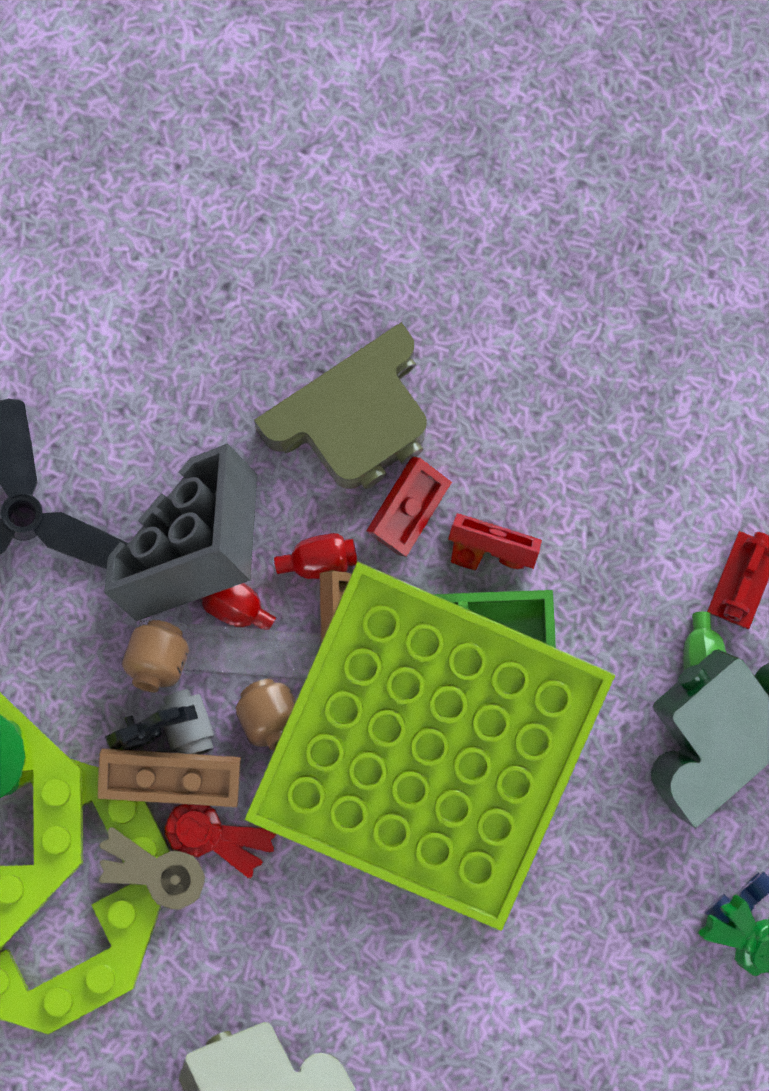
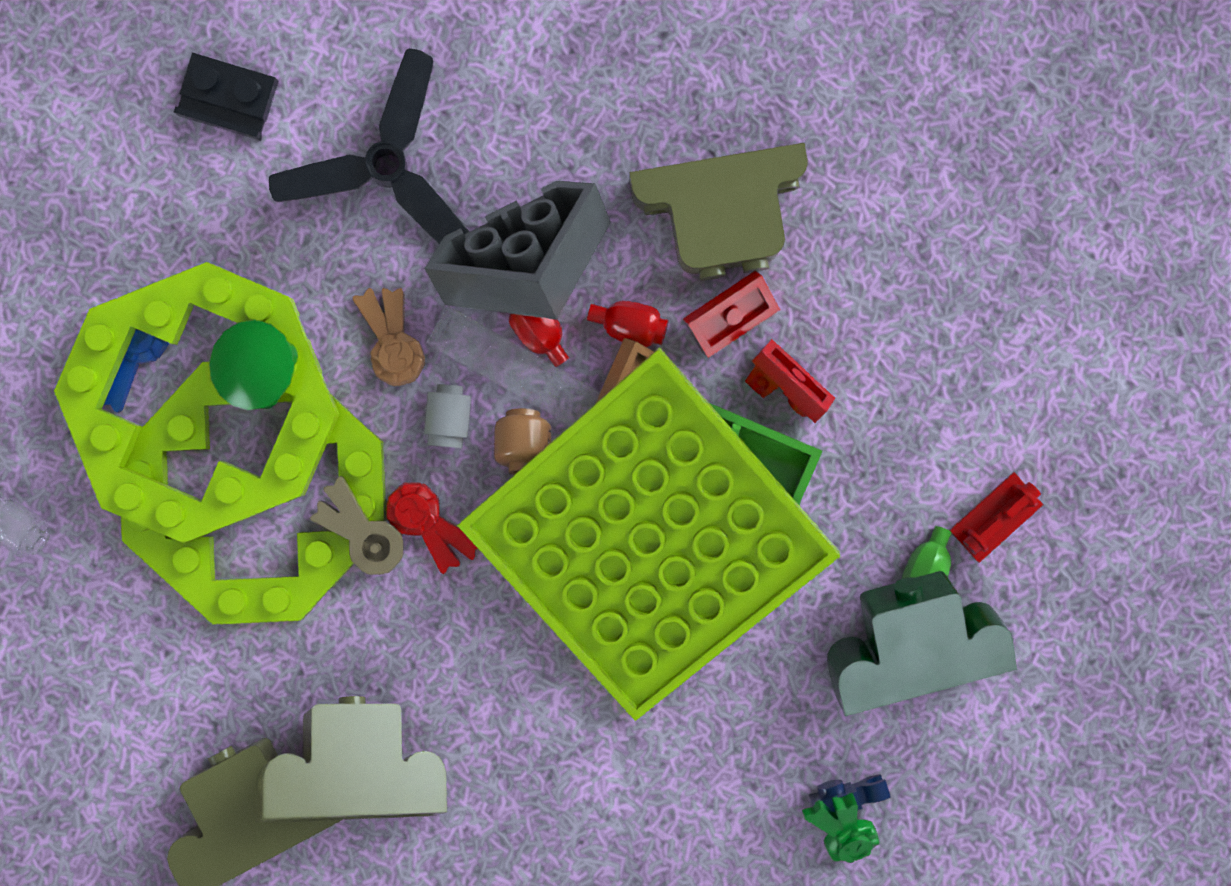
camera: 30 degrees right, 10 degrees up
(108, 686) = (396, 356): none -> medium nougat piece
(147, 730) = (409, 408): black piece -> none
(155, 656) = (445, 345): medium nougat head -> none
(169, 777) = (409, 457): medium nougat plate -> none

